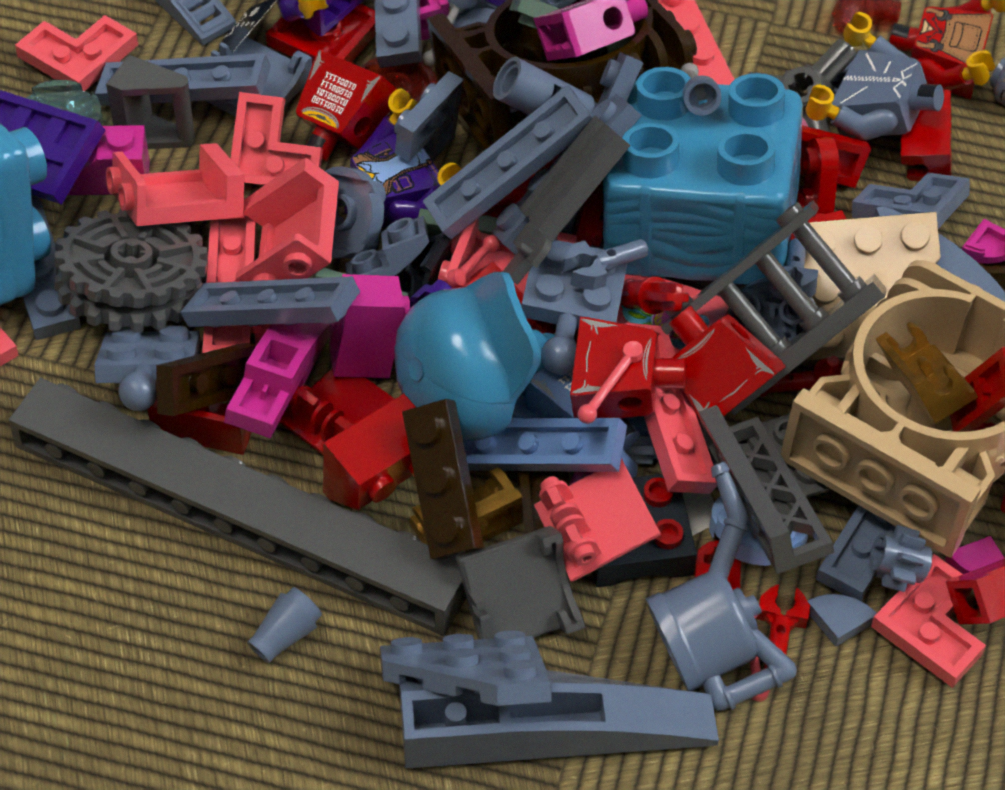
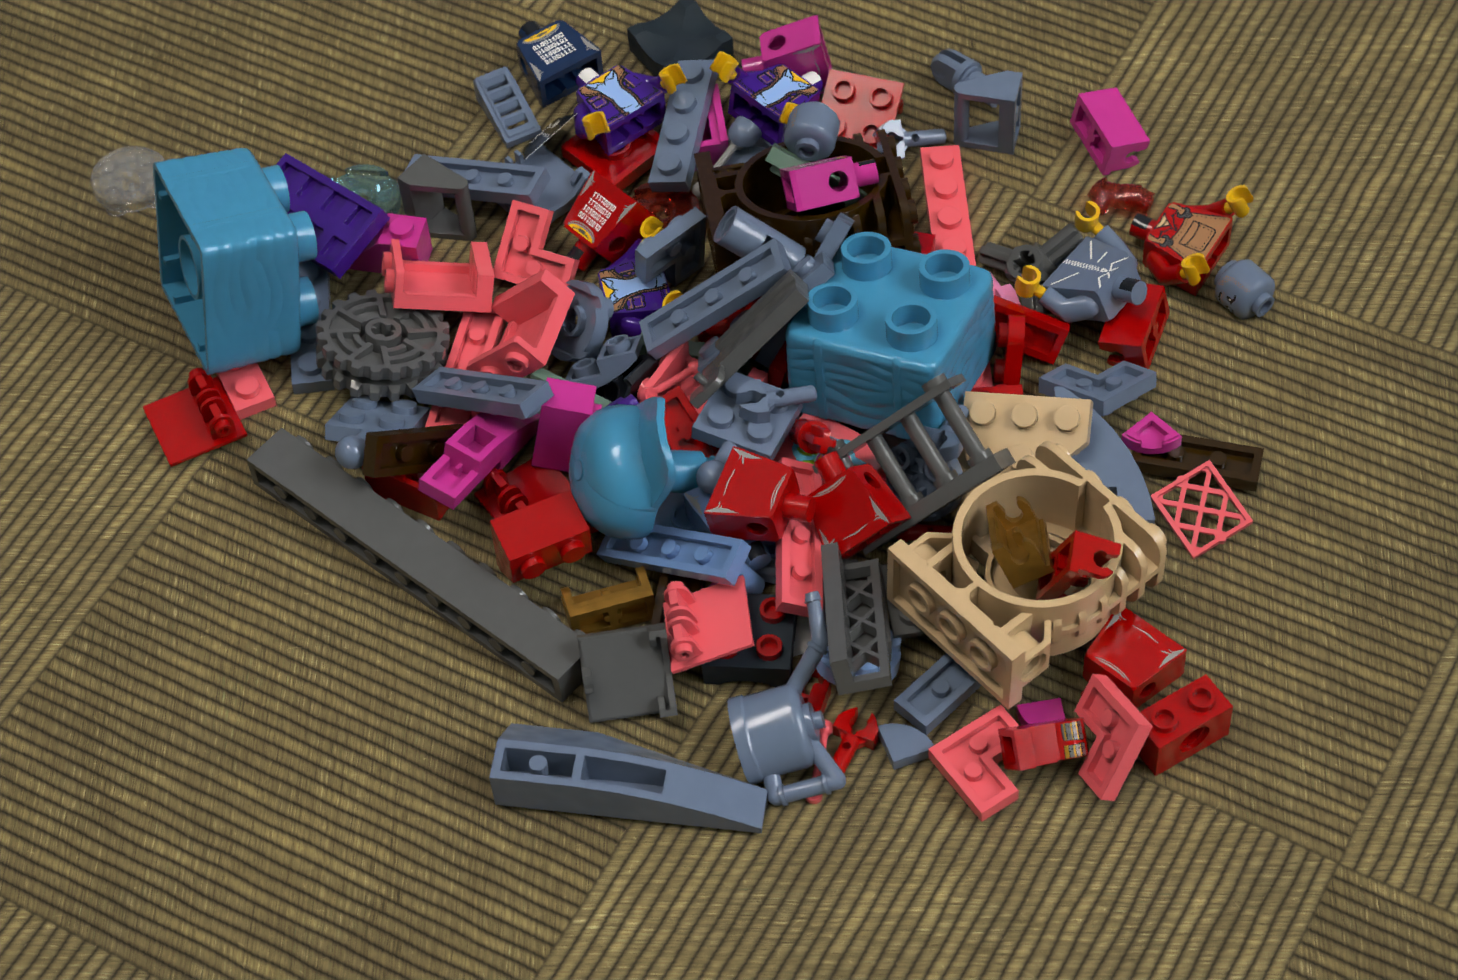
camera: 20 degrees right, 0 degrees up
(79, 58) = (394, 147): coral plate -> none
(287, 622) = (430, 668): sand blue cone -> none
(442, 479) = (579, 568): dark brown plate -> none
(497, 669) = (573, 733): sand blue plate -> none
(632, 353) = (765, 485): coral hinge -> none
(699, 89) = (892, 257): sand blue hinge -> none
(900, 558) = (962, 702): sand blue gear -> none

